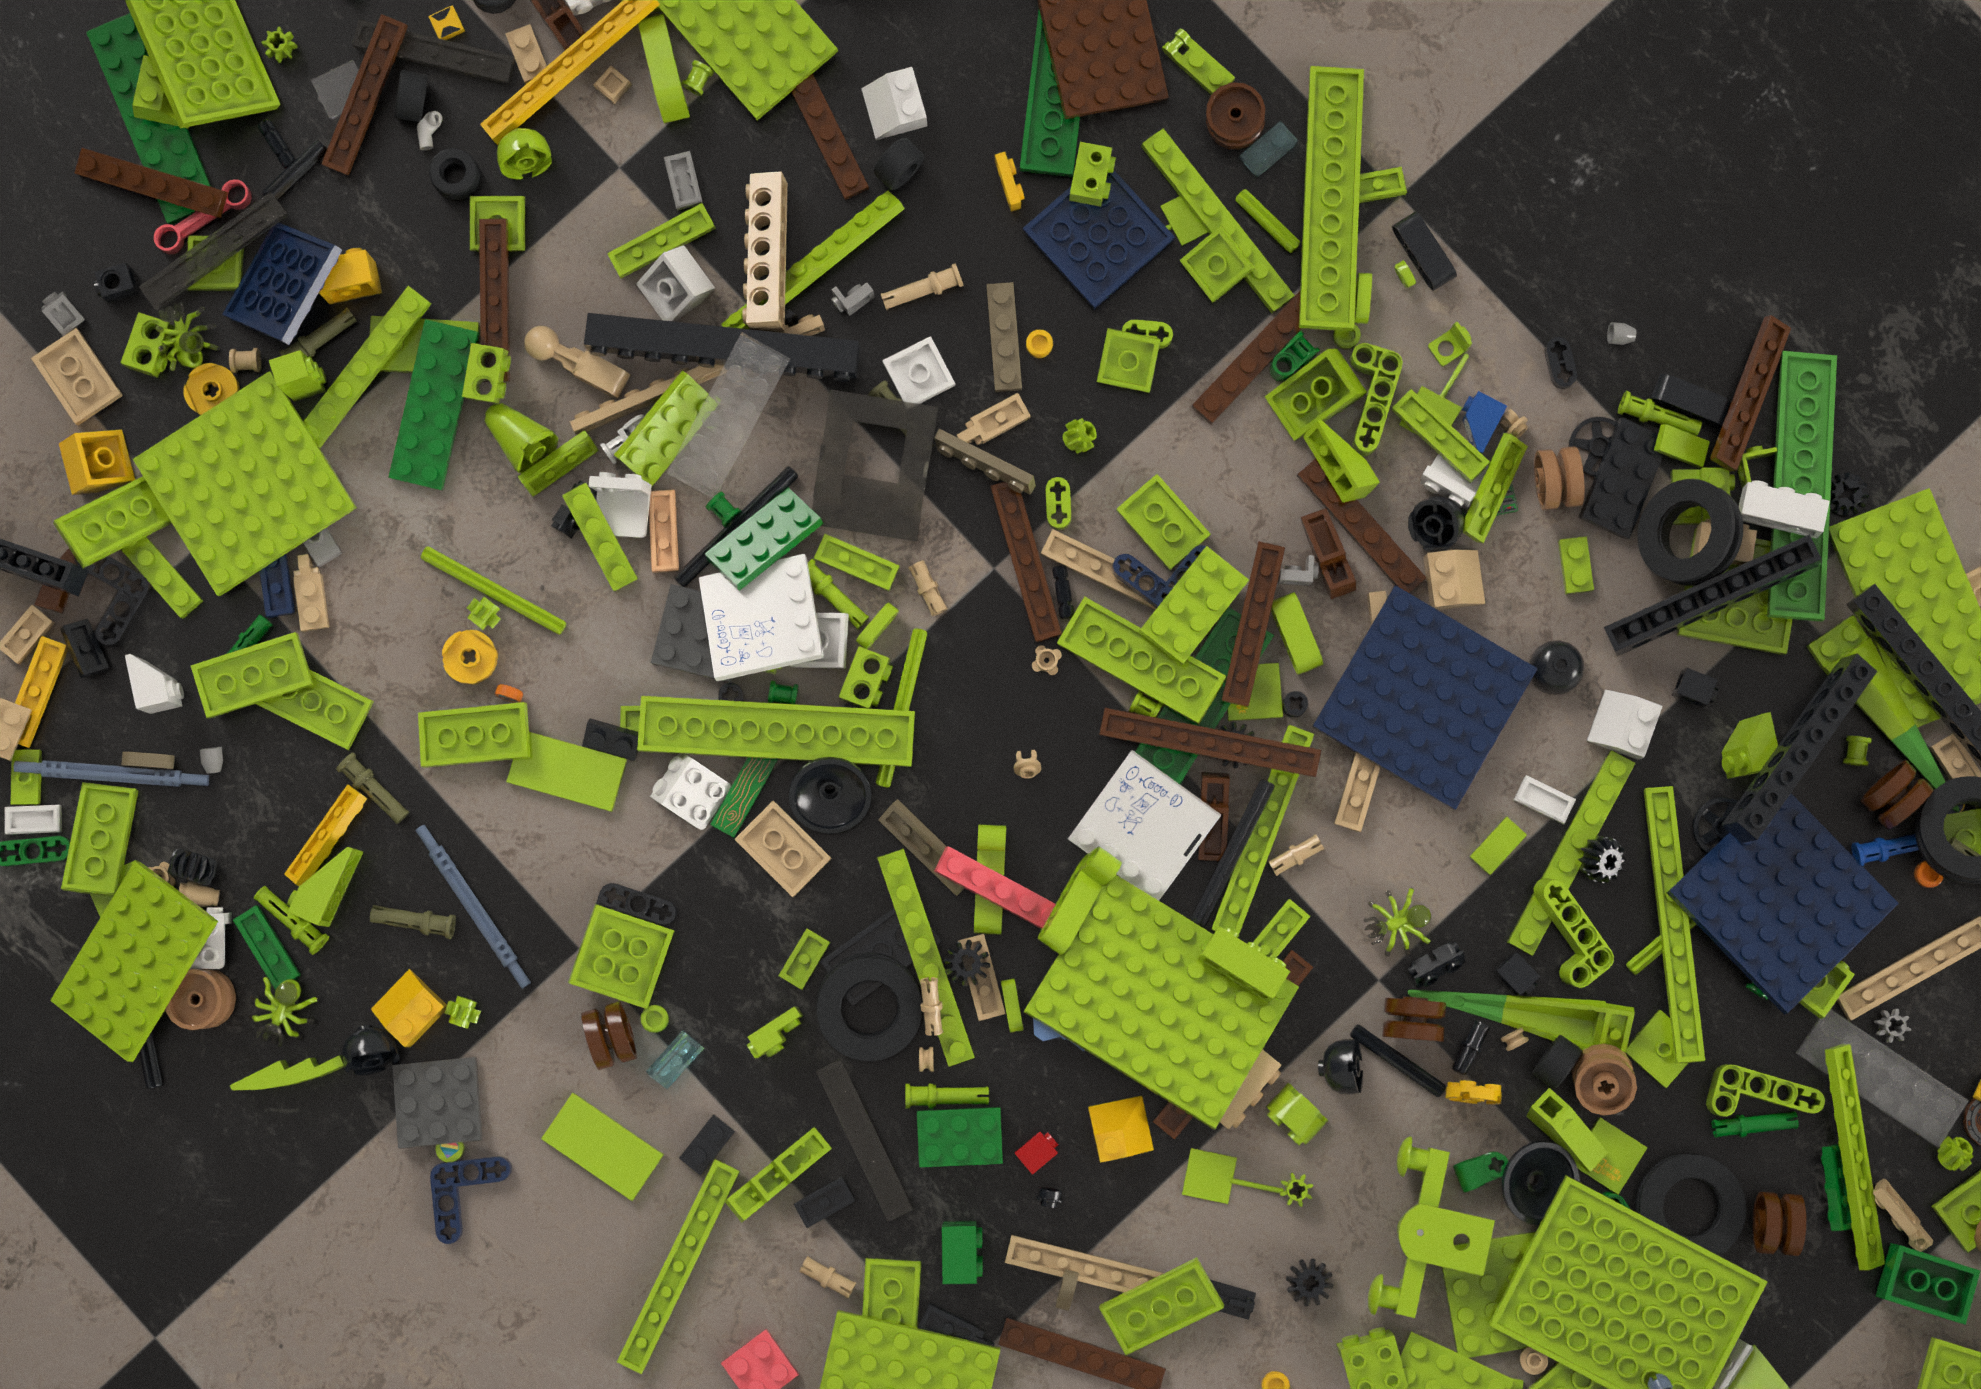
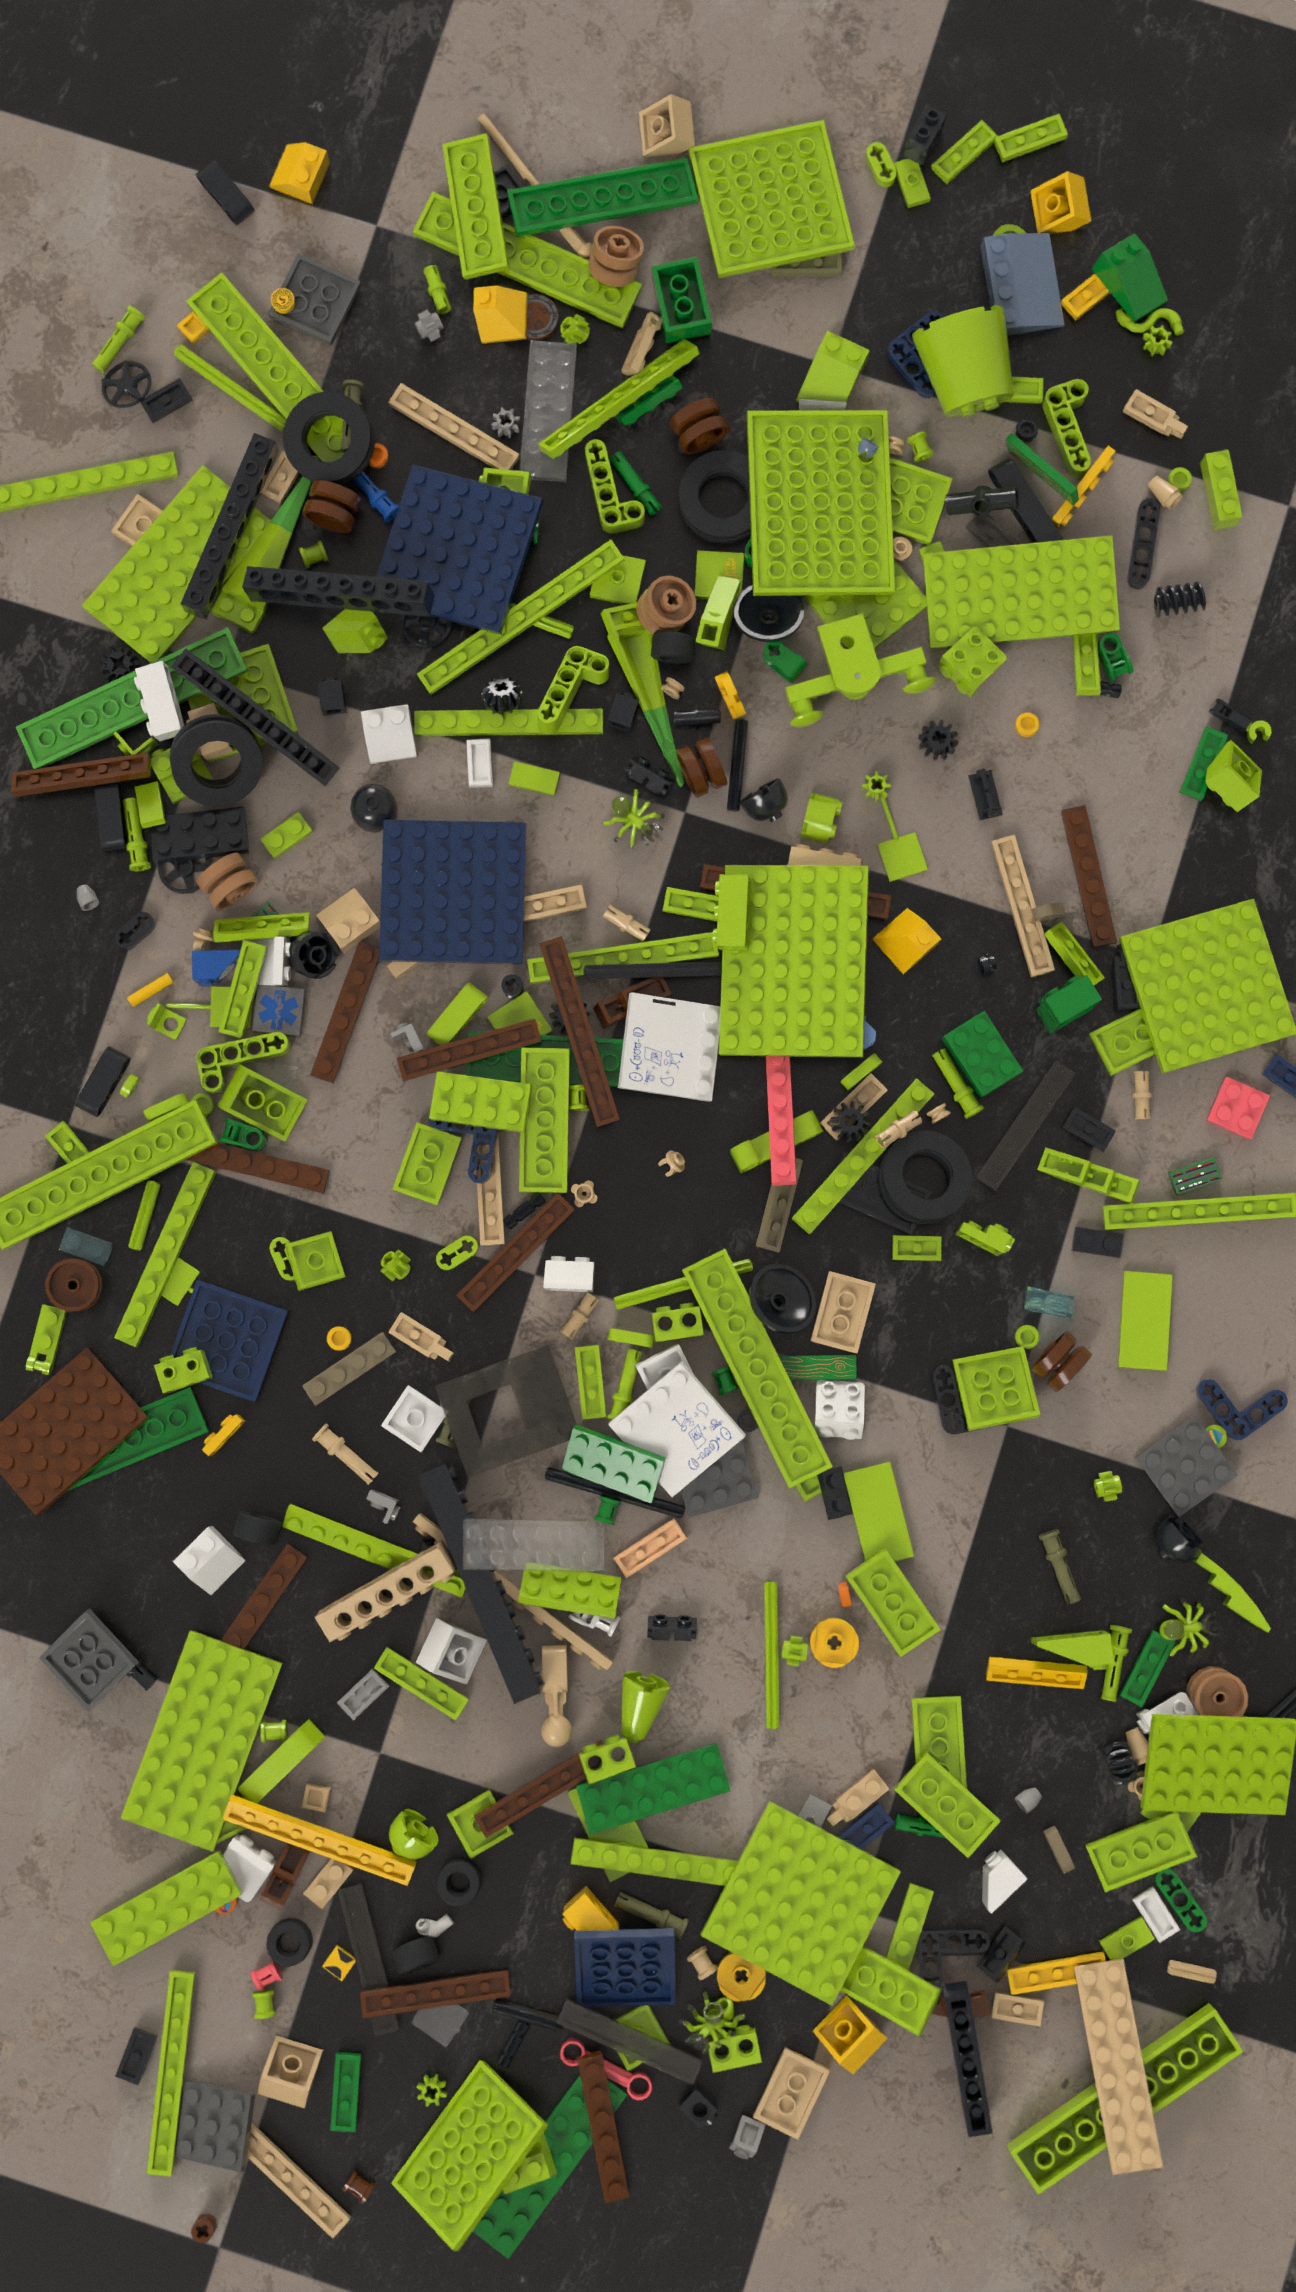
camera: 120 degrees left, 0 degrees up
(111, 773) = (1085, 1873): sand blue axle -> none
(298, 375) = (692, 1909): lime brick -> none
(363, 779) = (976, 1669): olive pin -> none
(409, 1009) = (1129, 1530): yellow slope -> none
(473, 906) = (1022, 1528): sand blue axle -> none
(558, 463) = (644, 1661): lime tile -> none
(599, 536) = (683, 1594): lime plate -> none
(623, 502) = (650, 1591): white bracket -> none
(717, 1283) = (1194, 1175): none -> tile
(972, 598) = (569, 1275): none -> white slope
(992, 466) = (458, 1335): dark tan plate -> none
(1008, 1291) = (1073, 953): none -> lime plate
(1037, 1151) = (959, 992): red brick -> none
(1077, 899) = (754, 1065): lime beam -> none
(1161, 1306) = (1019, 836): lime tile -> none
(1217, 264) = (200, 1234): lime tile -> none
(1329, 553) = (381, 1024): reddish brown slope -> none
(1342, 464) = (306, 1052): lime slope -> none
(1401, 460) = (278, 1010): none -> flat silver tile
(1492, 346) = (150, 989): none -> yellow piece

